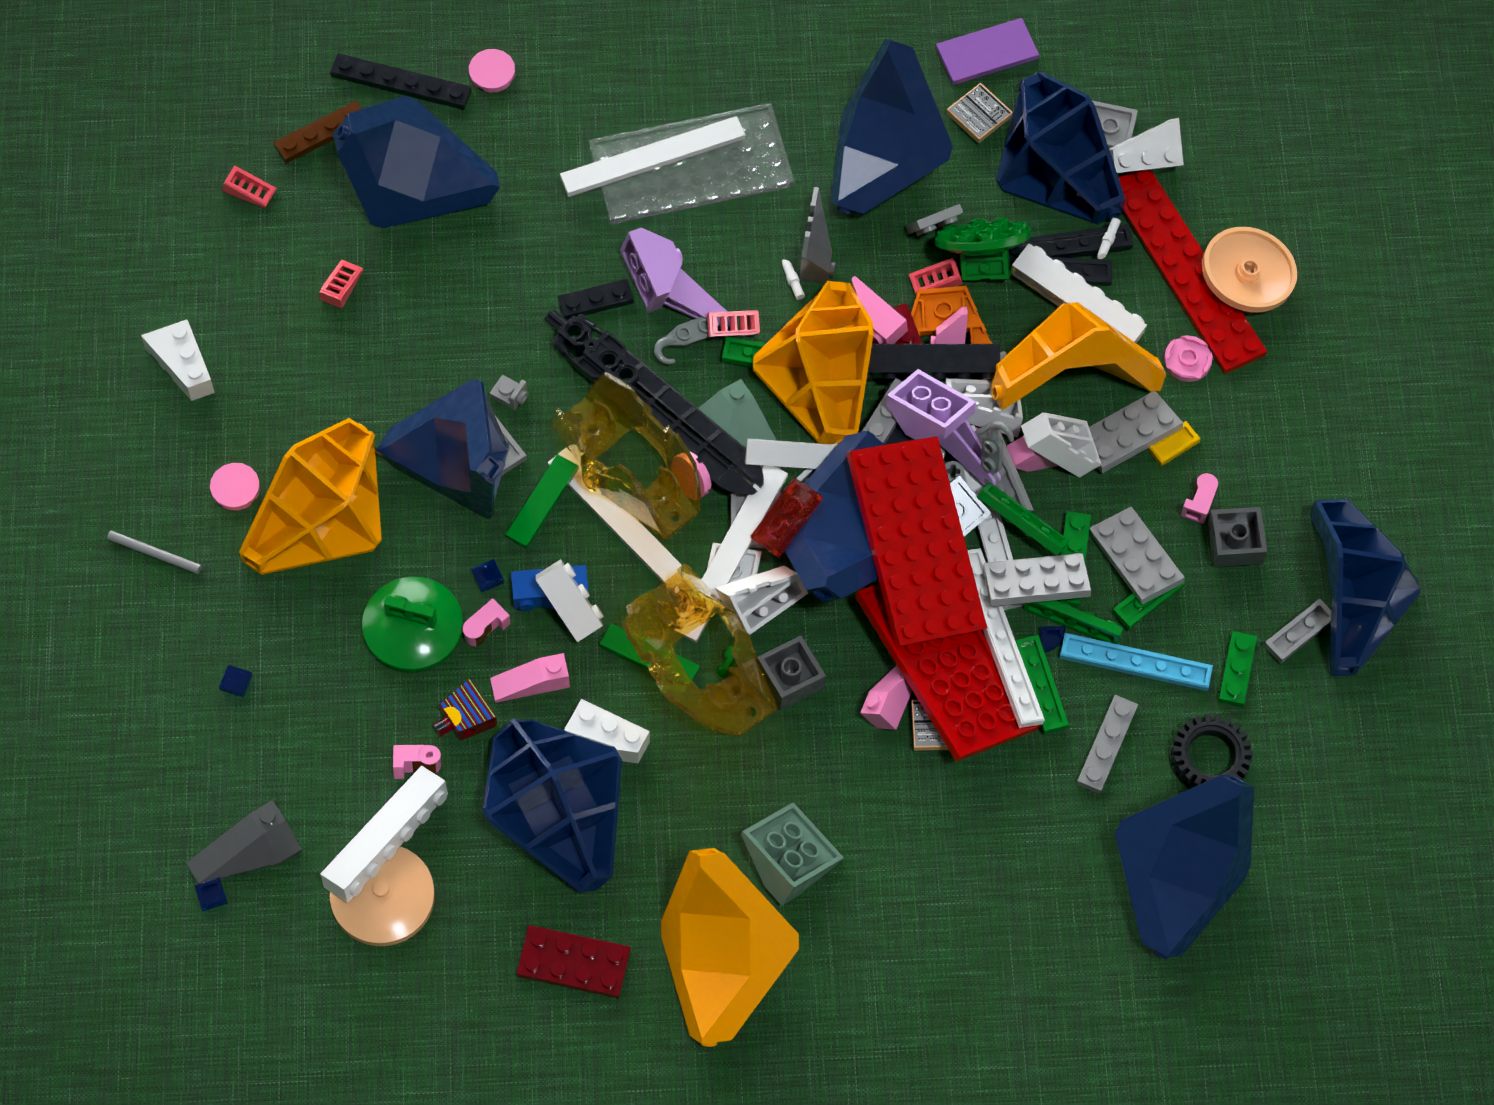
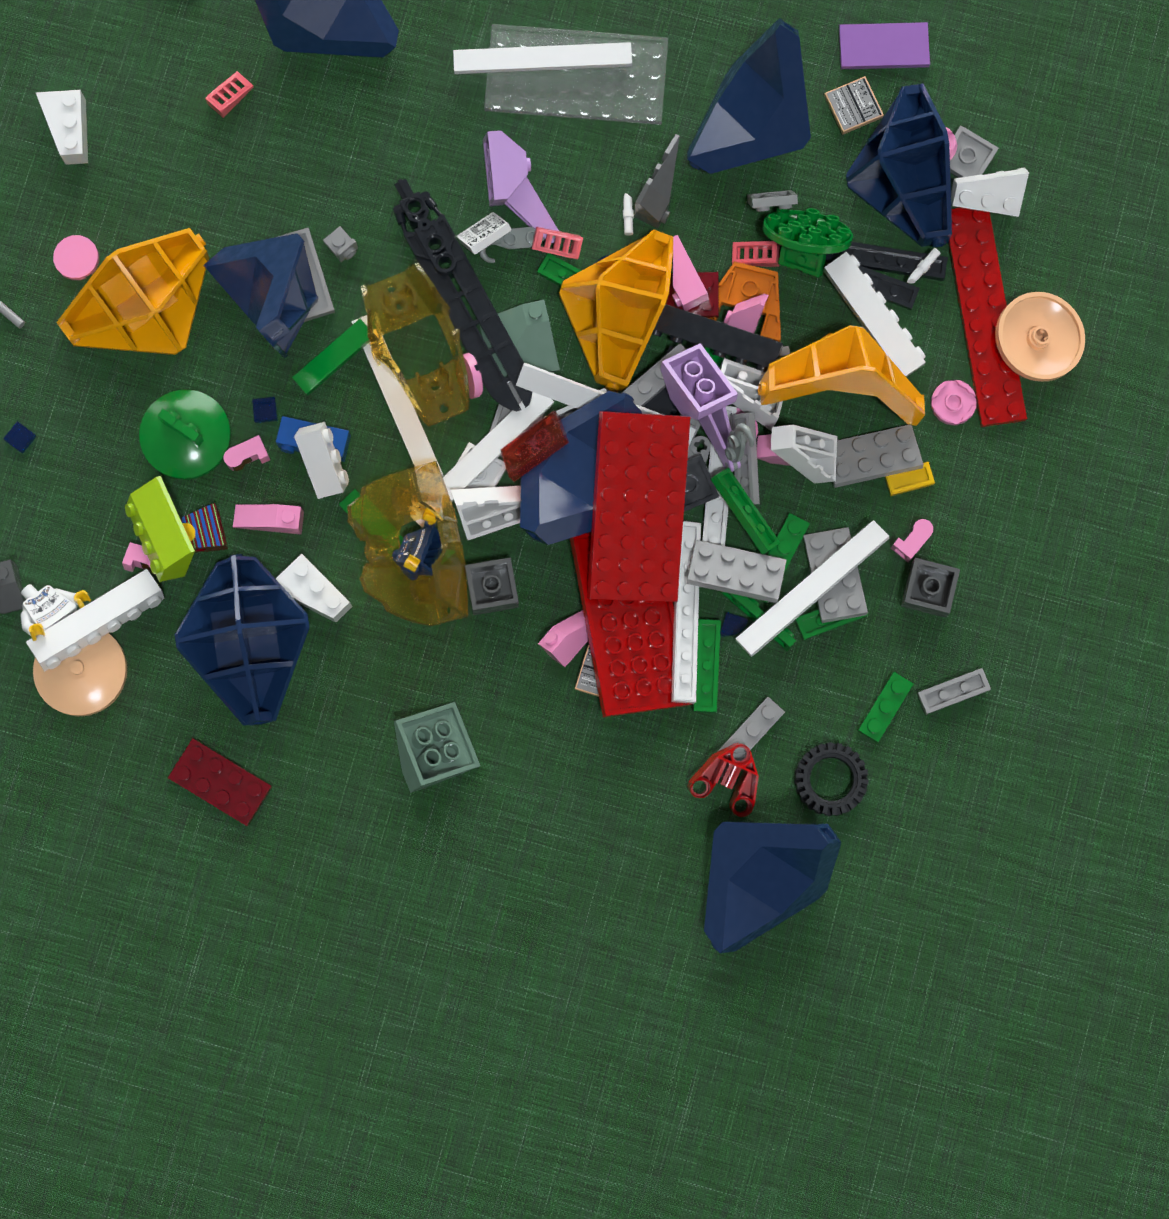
camera: 20 degrees right, 15 degrees up
(329, 837) = (48, 607): none -> white torso
(425, 719) = (160, 530): none -> lime slope
(596, 299) = (447, 179): black plate -> none
(655, 335) = (484, 233): none -> white tile
(709, 652) = (419, 549): none -> dark blue torso
(722, 945) = (341, 822): light orange panel -> none
(1088, 782) = (713, 768): none -> red connector
(1119, 572) = (812, 588): none -> white tile
(1136, 662) = (808, 677): medium azure tile -> none
(1367, 583) = (1027, 667): dark blue panel -> none

